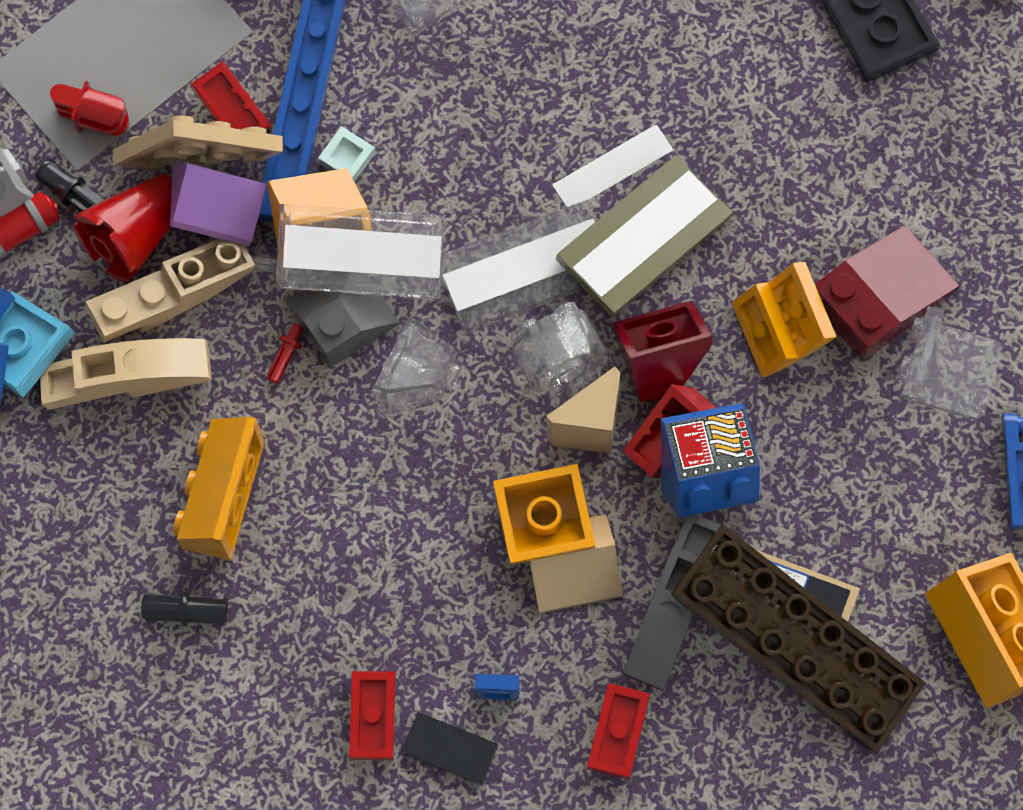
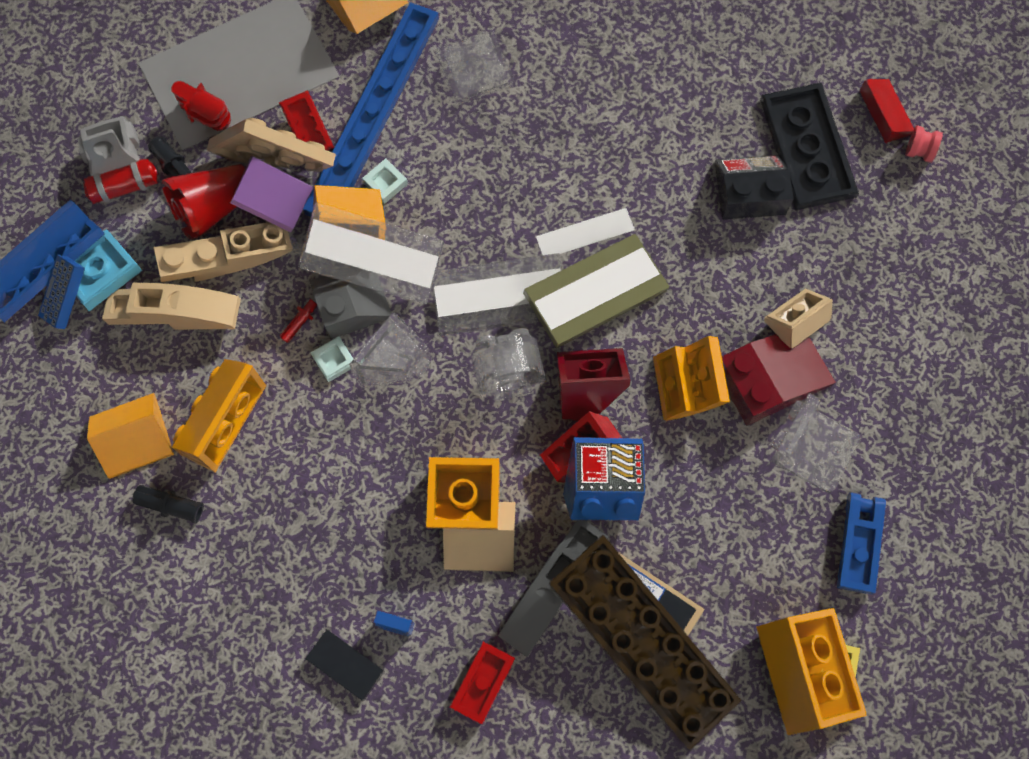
camera: 10 degrees right, 0 degrees up
(115, 538) = (129, 436): none -> light orange slope
(340, 391) = (332, 358): none -> light aqua tile
(372, 715) = (290, 624): red plate -> none
(588, 417) = (519, 421): tan slope -> none
(808, 64) = (753, 187): none -> black slope
(899, 215) = (800, 317): none -> tan slope

